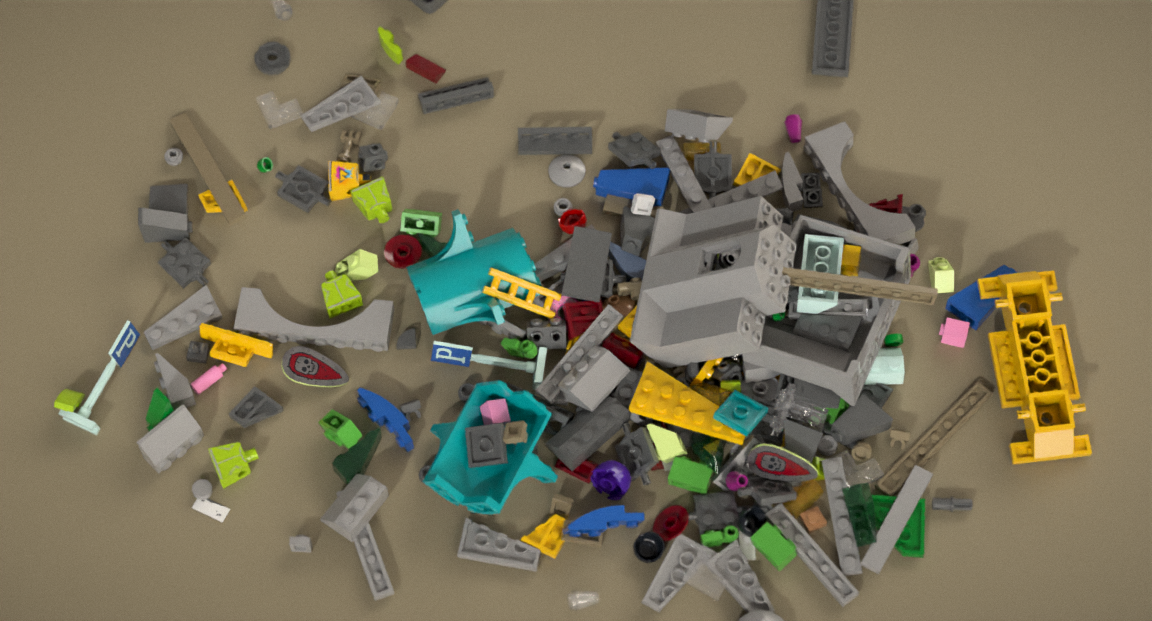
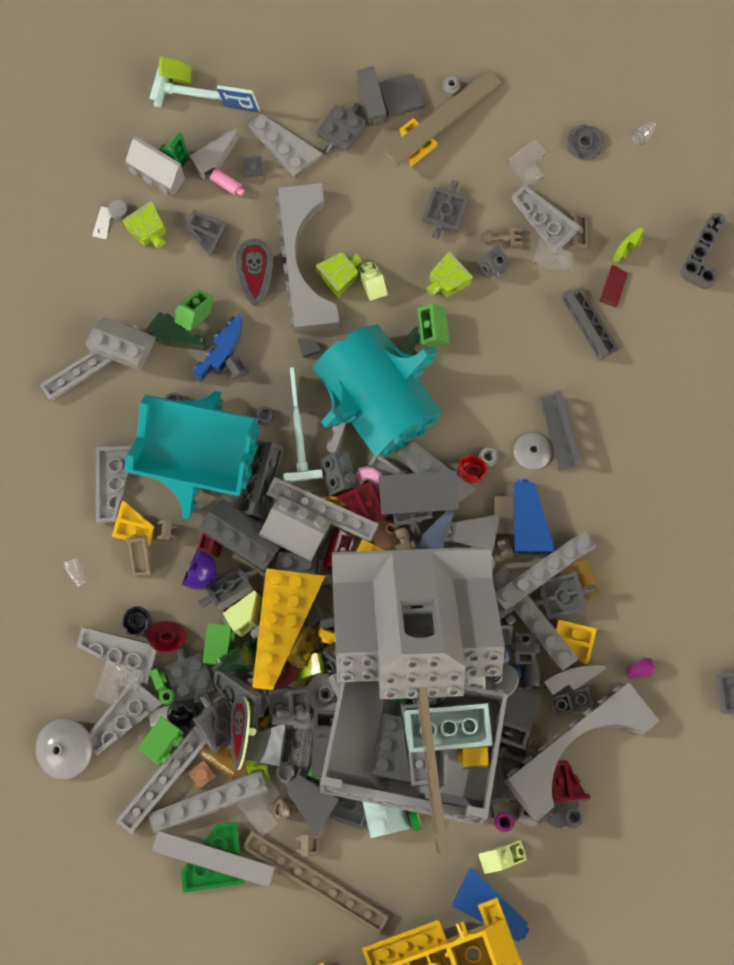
camera: 75 degrees right, 15 degrees up
(234, 346) = (260, 195): yellow bracket -> none
(265, 168) = (460, 170): green hinge -> none
(300, 543) = (80, 307): light grey plate -> none
(343, 178) = (464, 244): yellow torso -> none
(399, 245) = (398, 309): dark red dish -> none
(486, 445) = (194, 443): dark grey tile -> none
(495, 412) = (230, 444): bright pink brick -> none
(510, 297) = (375, 429): yellow bar -> none
(515, 432) = (208, 466): dark tan tile -> none
(520, 349) = (315, 457): bright green plate -> none
(599, 520) = (148, 564): blue slope -> none
(634, 149) = (569, 510): dark grey plate -> none
(642, 204) = (502, 532): white tile -> none
(696, 124) = (613, 567): light grey slope -> none
(732, 480) = (217, 690): magenta cone -> none
(740, 413) = (281, 679): teal tile -> none
(861, 513) = (210, 821): clear green slope -> none
(951, 504) = (246, 912): dark grey axle -> none
(954, 332) = (439, 882): bright pink brick -> none

